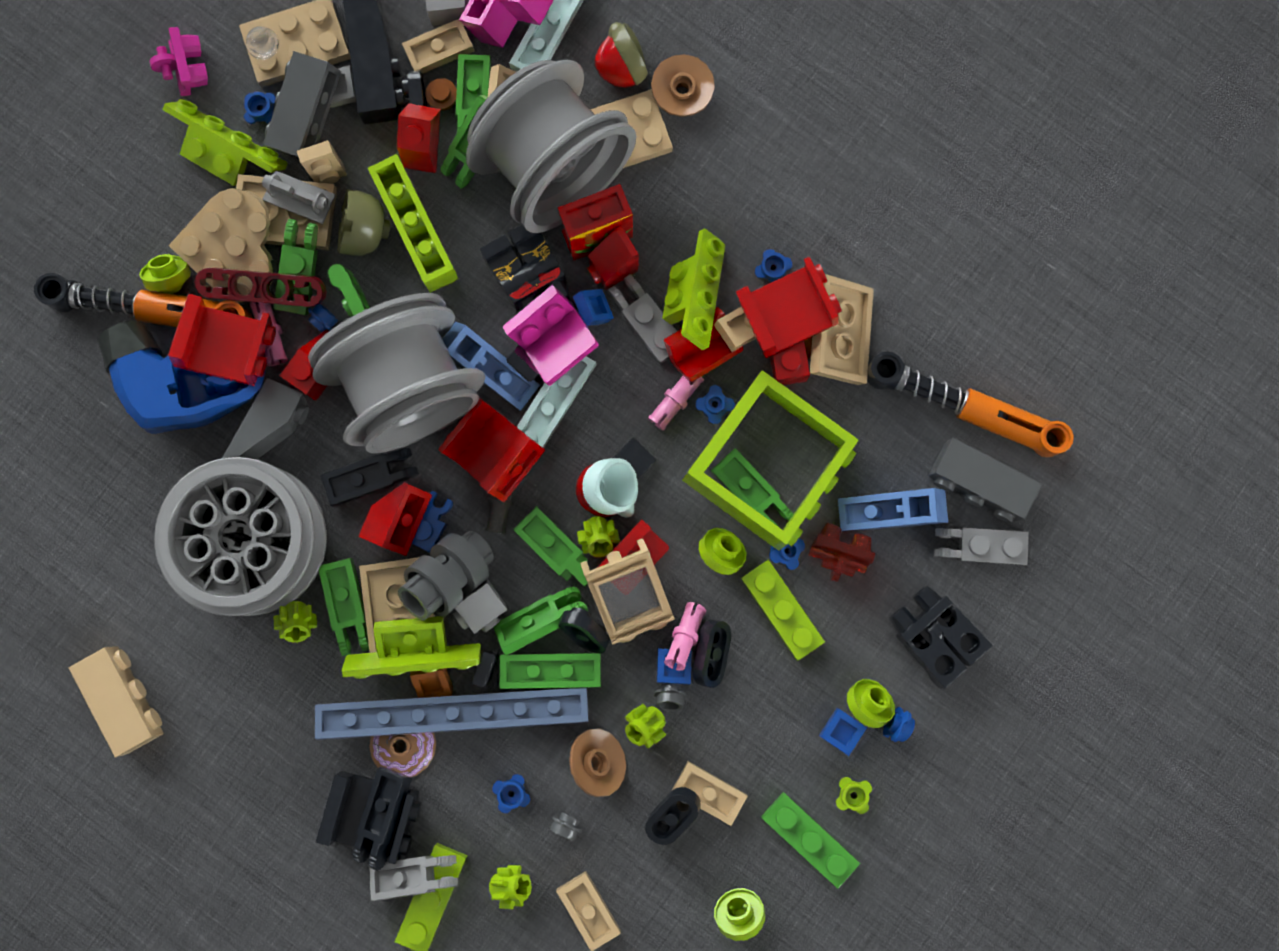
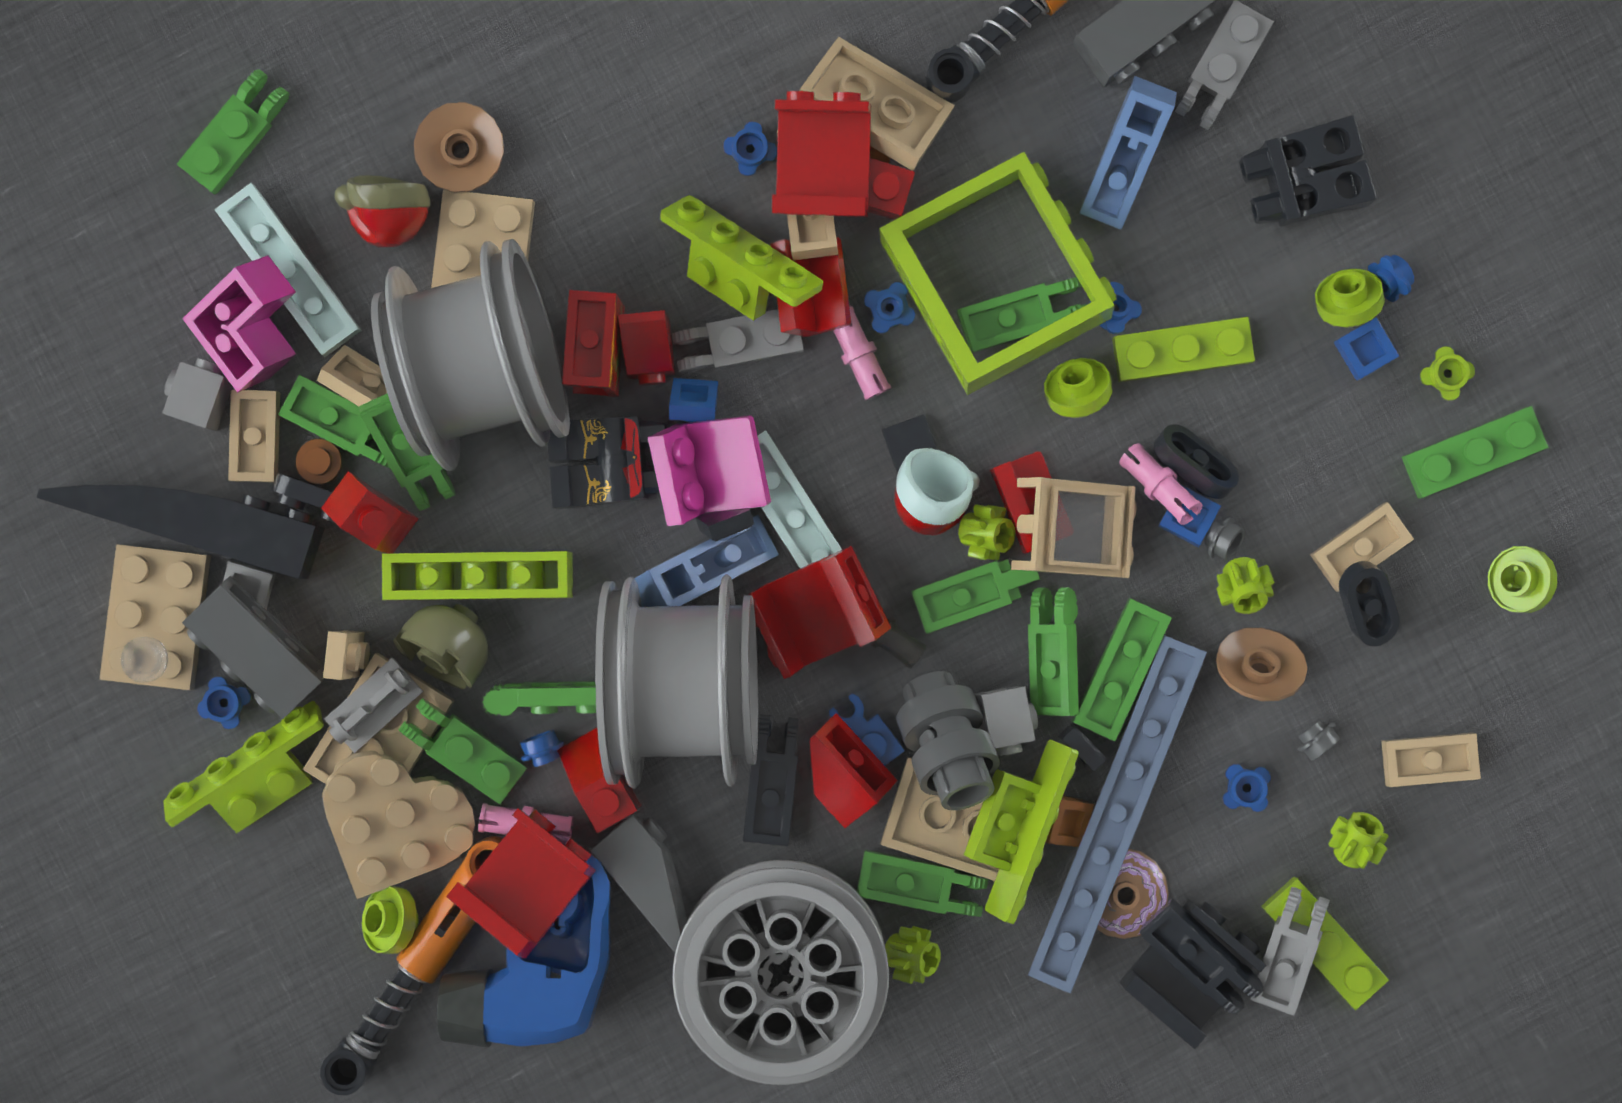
camera: 60 degrees left, 5 degrees up
(181, 48) = (96, 770): dark pink hips -> none
(260, 290) = (475, 808): dark red beam -> none
(584, 630) = (1095, 604): black plate -> none
(840, 556) = (1155, 246): clear red hips -> none

